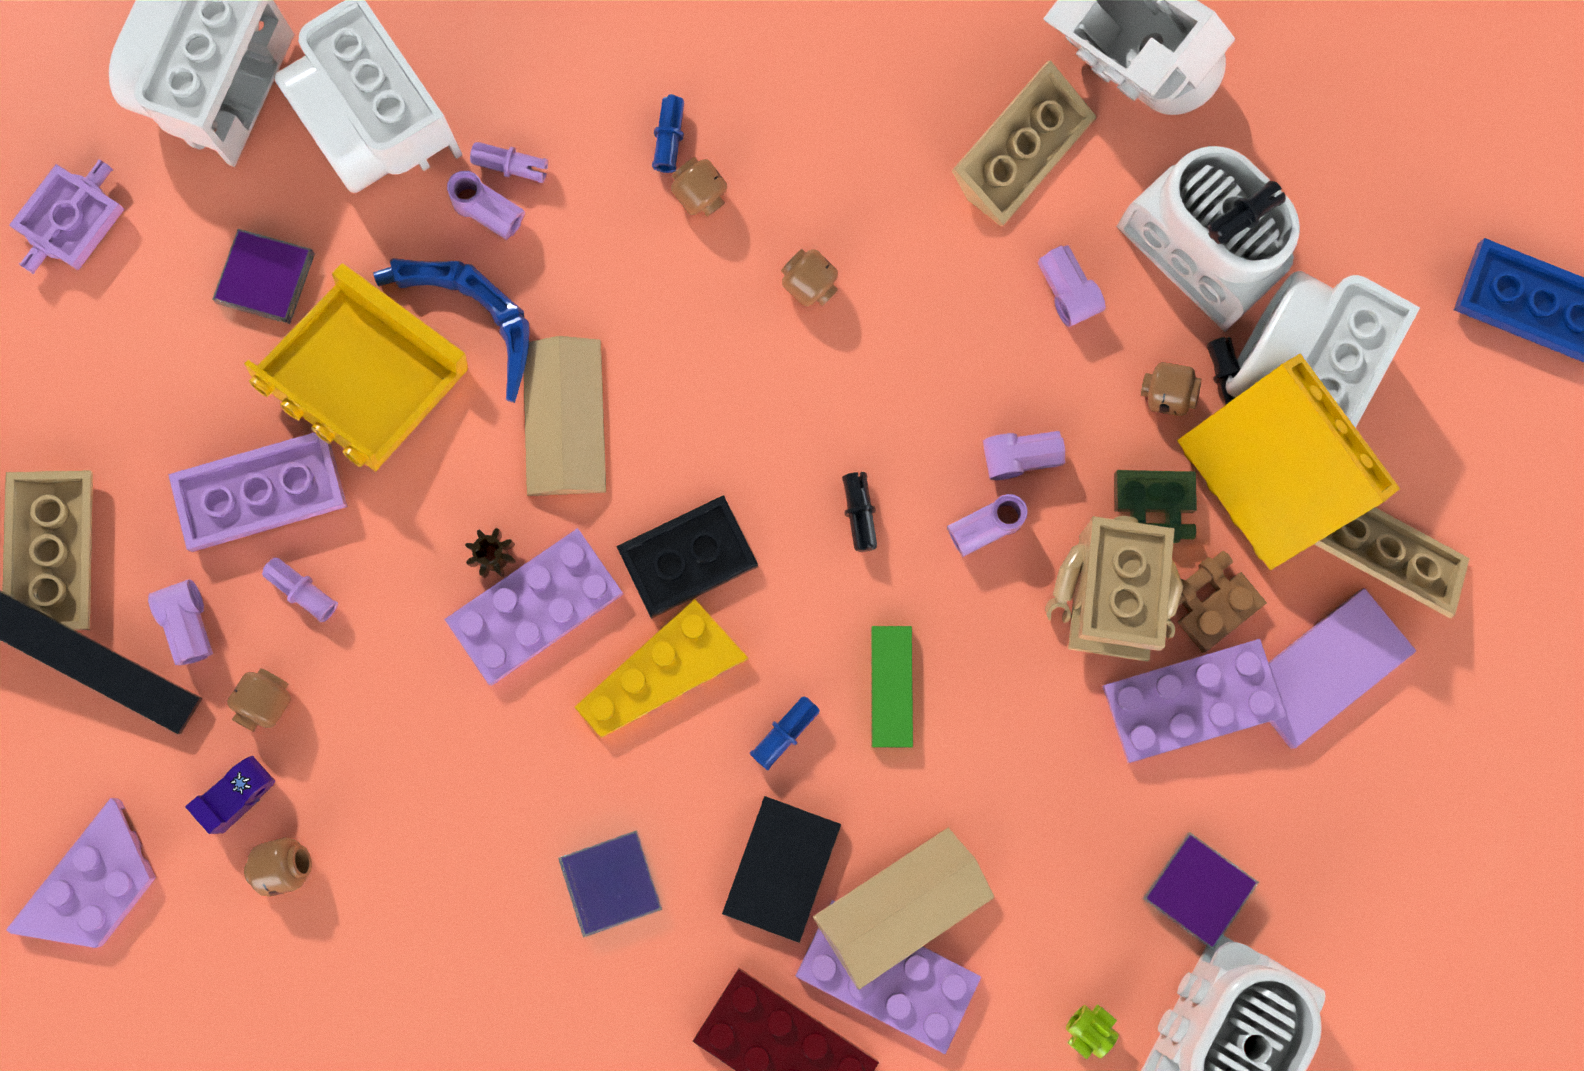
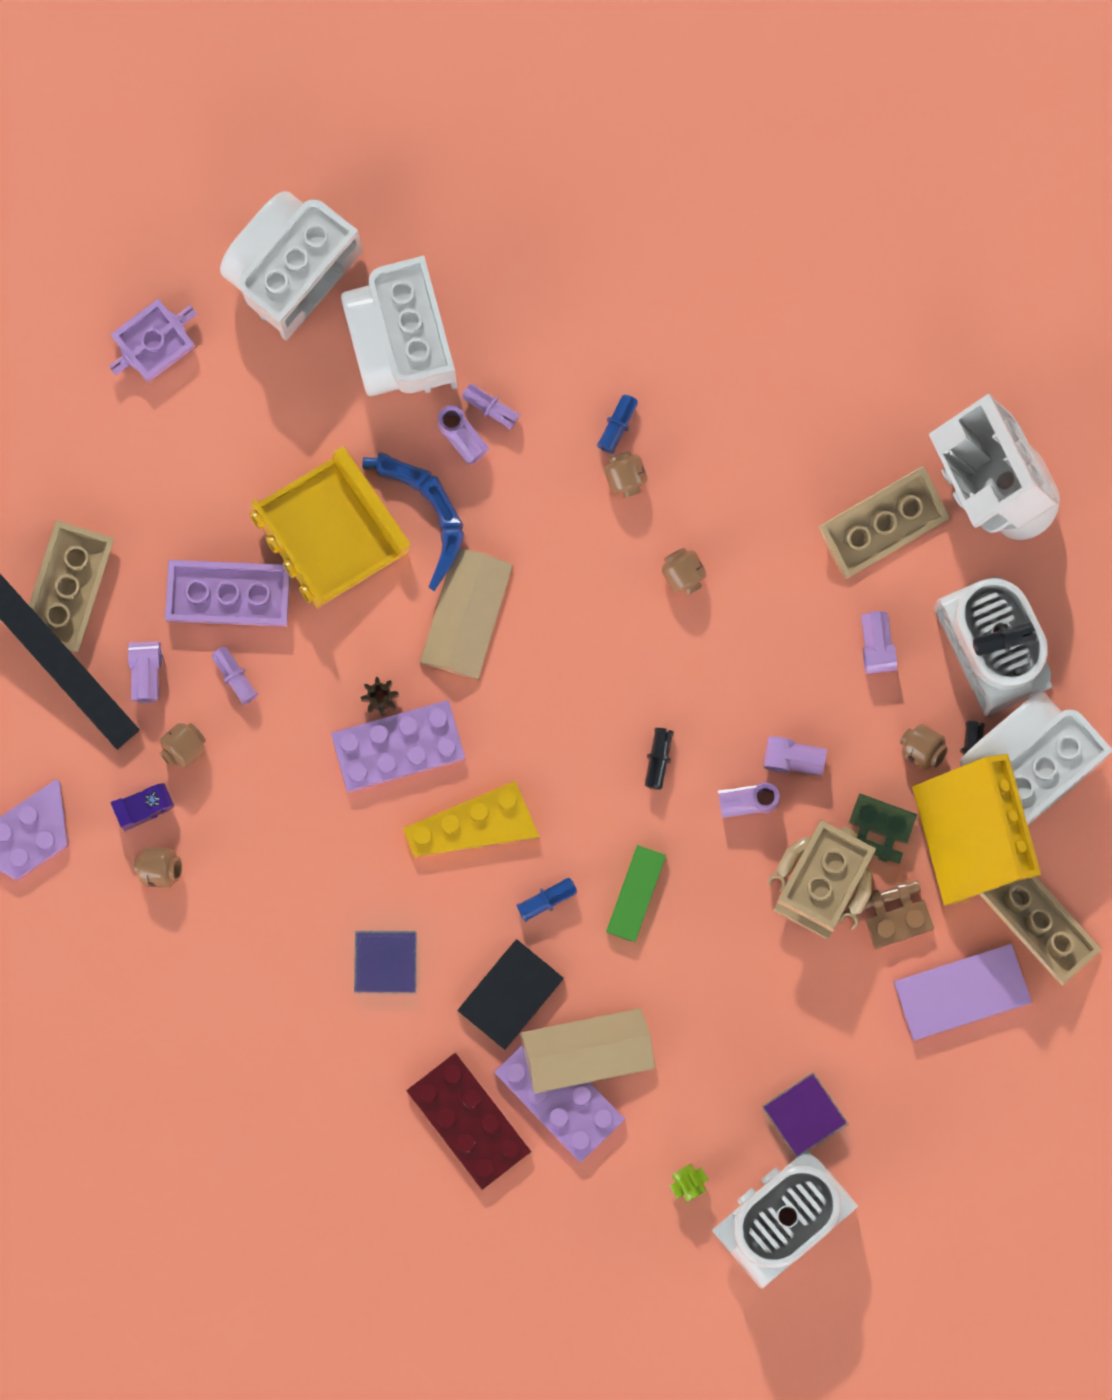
camera: 30 degrees right, 0 degrees up
(263, 276) = (281, 433): dark purple tile -> none
(687, 556) = (521, 748): black tile -> none
(1194, 701) = (851, 980): lavender plate -> none

